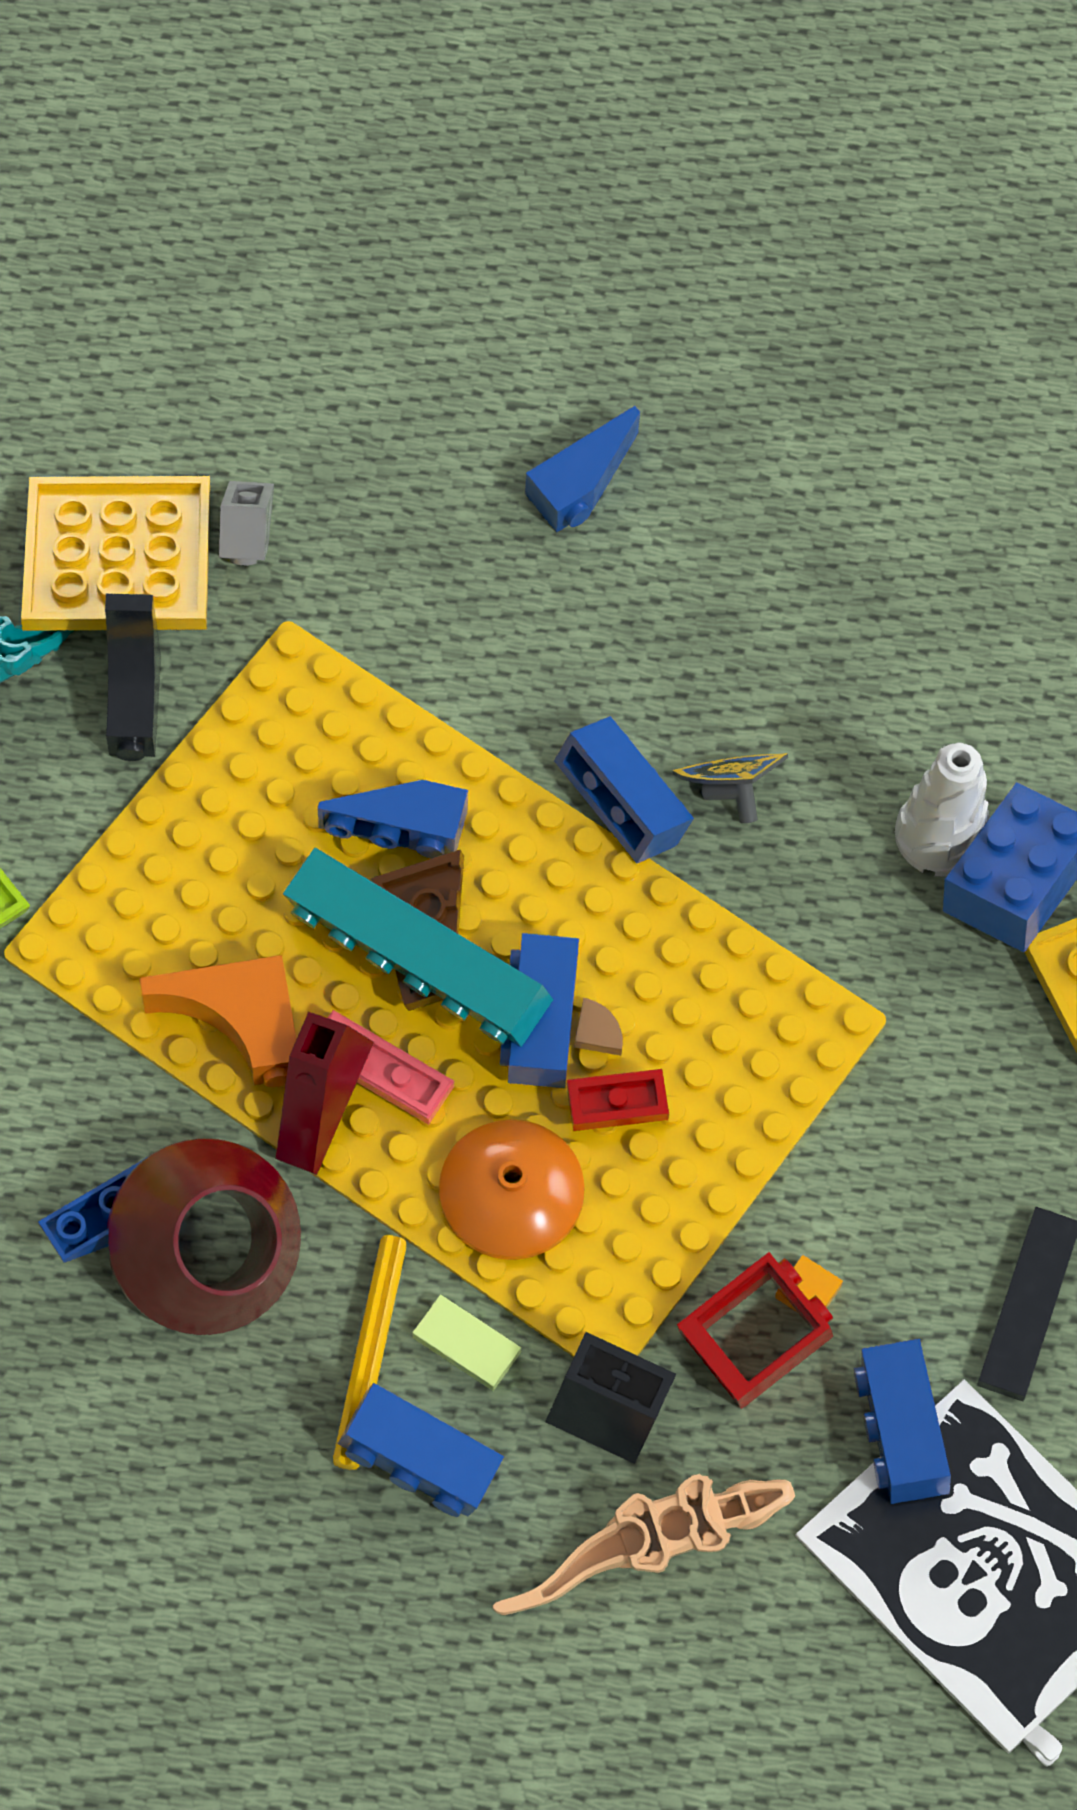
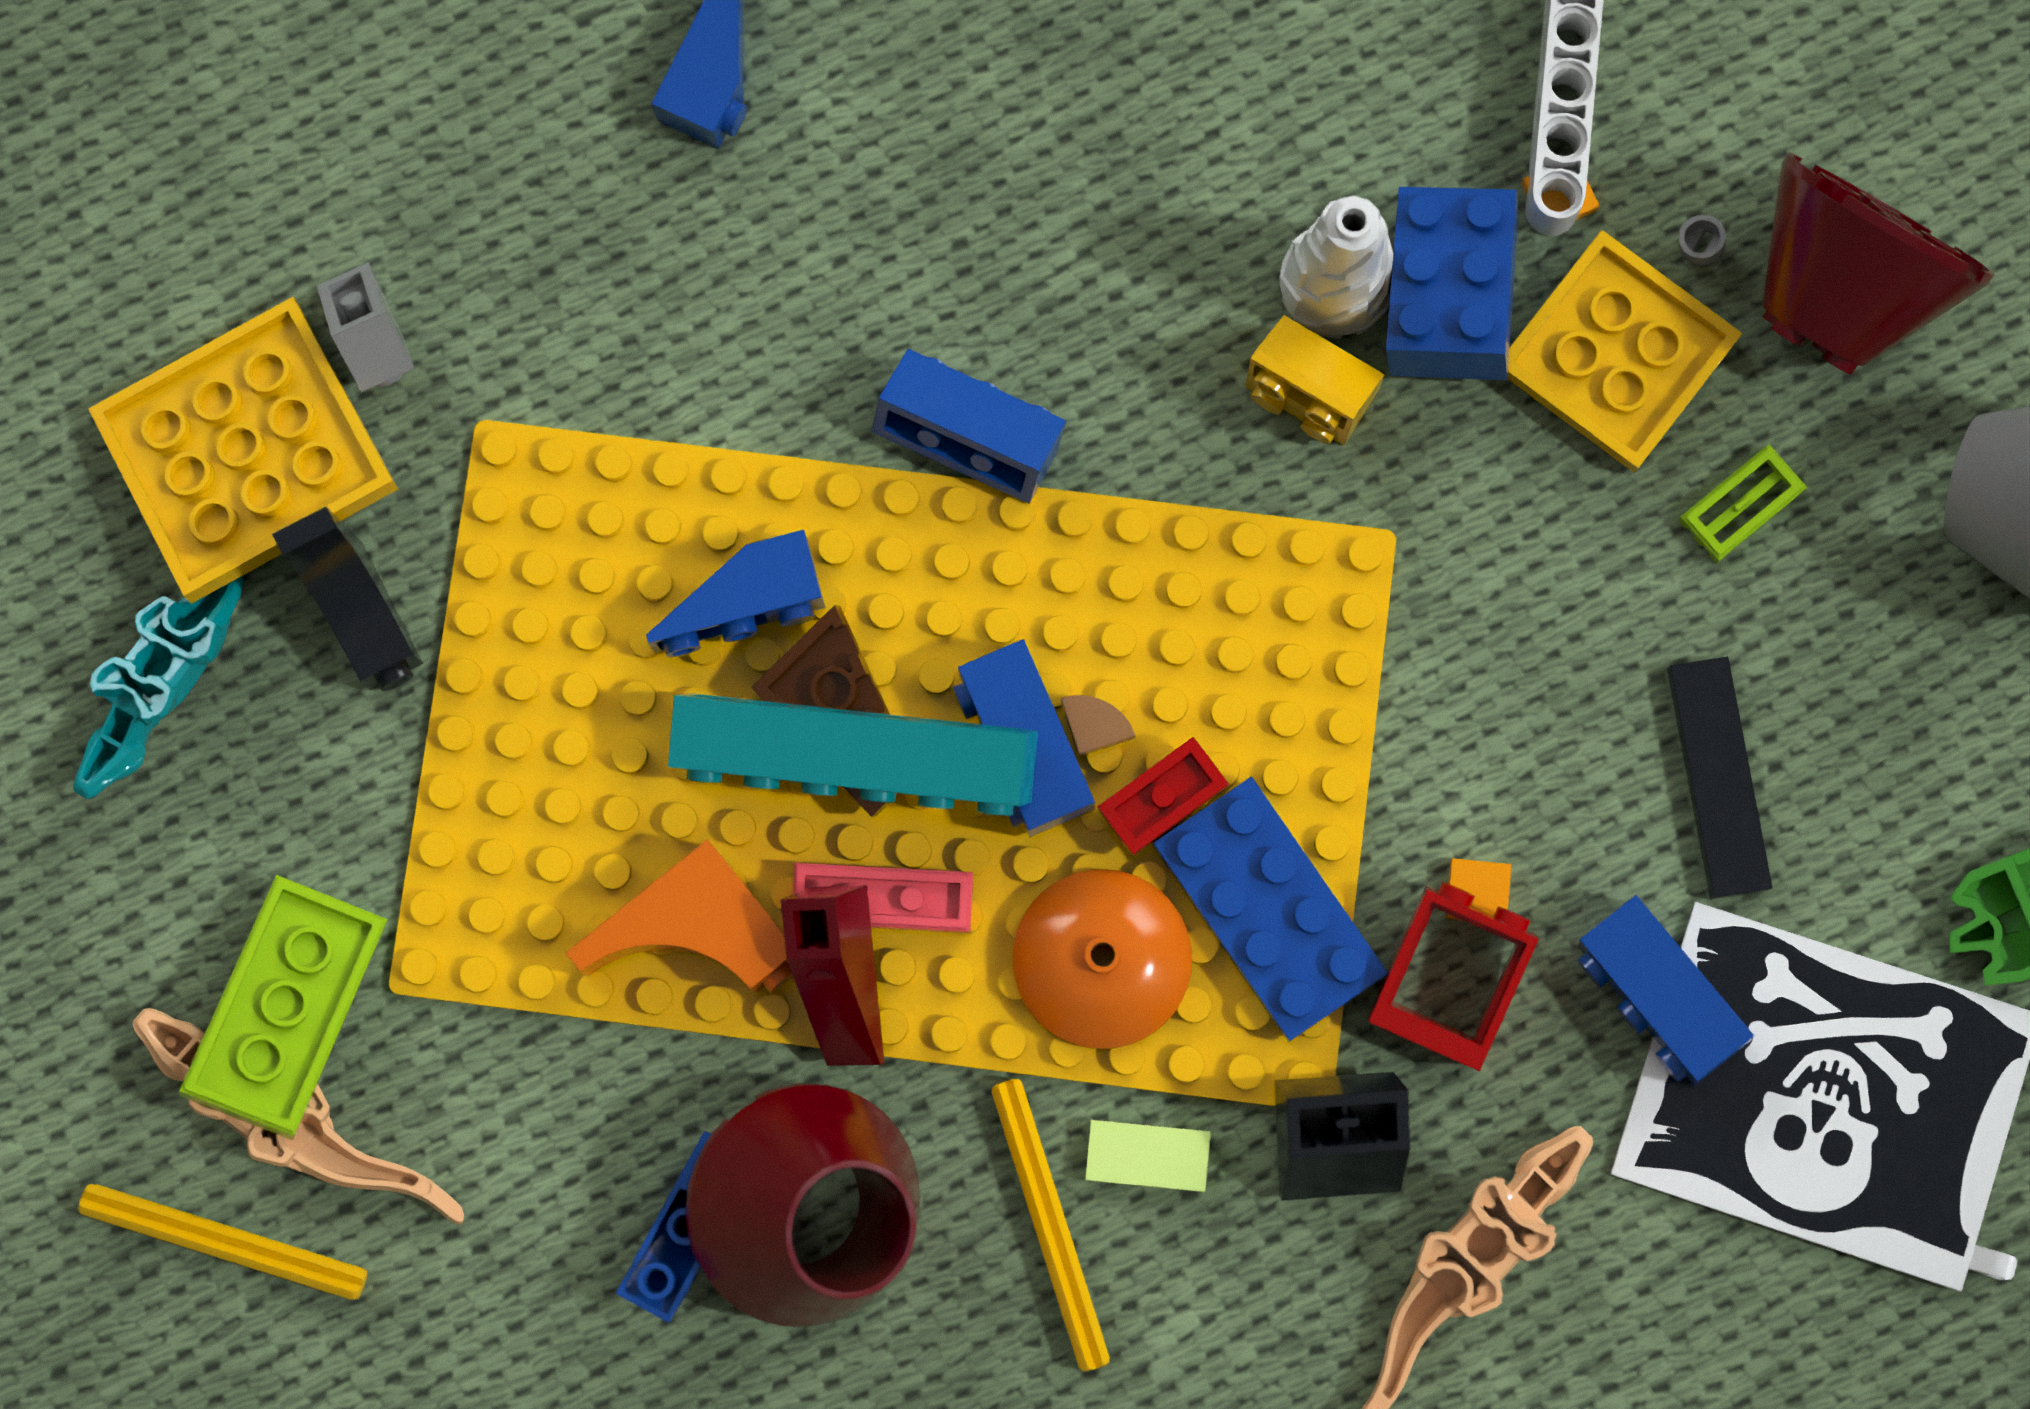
camera: 20 degrees left, 15 degrees up
(420, 1452) = (1172, 1317): blue brick -> none
(650, 1217) = (1270, 909): none -> blue plate
(732, 779) = (1078, 342): shield -> none
(882, 882) = (1311, 381): none -> yellow slope

